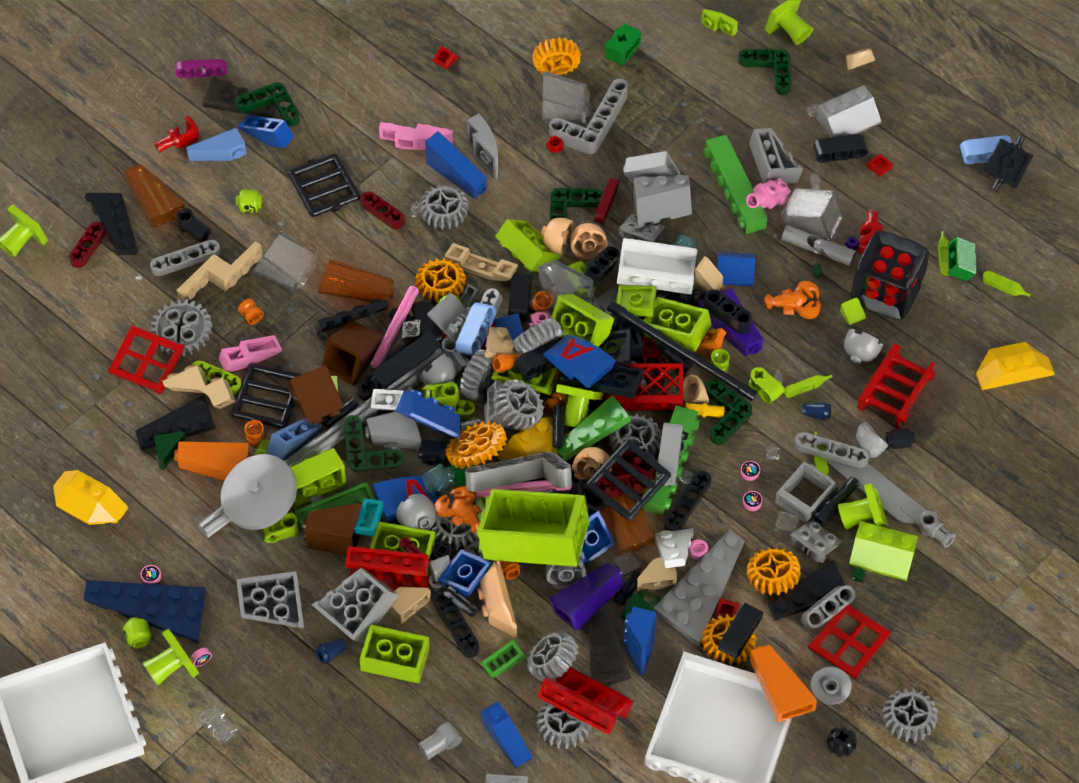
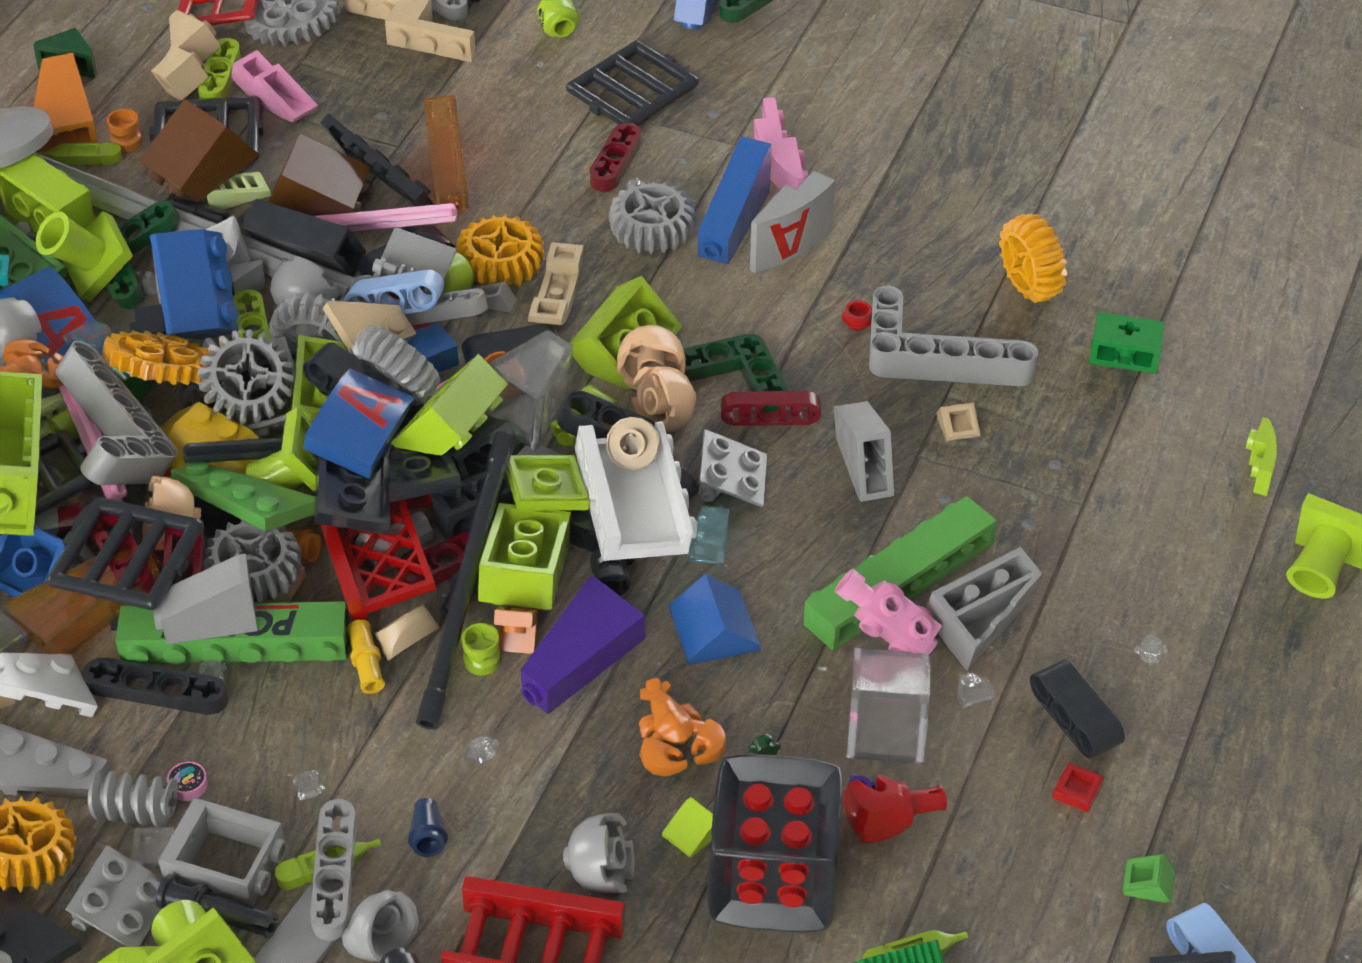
camera: 70 degrees right, 10 degrees down
(190, 418) = (121, 58): black wing -> none
(250, 311) = (350, 69): orange wheel -> none
(286, 262) = (455, 66): clear slope -> none
(292, 438) = (119, 164): medium blue slope -> none
(366, 454) = (88, 254): none -> lime plant
(411, 331) = (372, 233): clear smoke bracket -> none
(441, 393) = (255, 302): lime piece -> none
(445, 57) = (966, 147): red slope -> none
(504, 362) = (325, 331): orange cone -> none
(564, 99) = (950, 288): clear slope -> none
(634, 254) = (633, 443): none -> tan plate
(643, 130) = (958, 421): none -> tan slope
(661, 198) = (801, 469): light grey wedge -> none
(698, 549) = (57, 727): bright pink tile -> none
(707, 277) = (653, 576): tan slope -> none
(732, 408) = (386, 702): dark green beam -> none
(736, 318) = (574, 613): black beam -> none
(750, 470) = (255, 761): tile -> none
(762, 519) = (132, 801): none -> light grey piece
(766, 386) = (451, 729): lime piece -> none
(773, 61) = (1223, 565): dark green beam -> none
(805, 385) = (481, 795): lime piece -> none
(826, 248) = (822, 711): light grey piece -> none
(849, 113) = (1168, 700): light grey slope -> none
(859, 58) = (1318, 685): tan piece -> none
(936, 159) = (1149, 878): none -> bright green slope

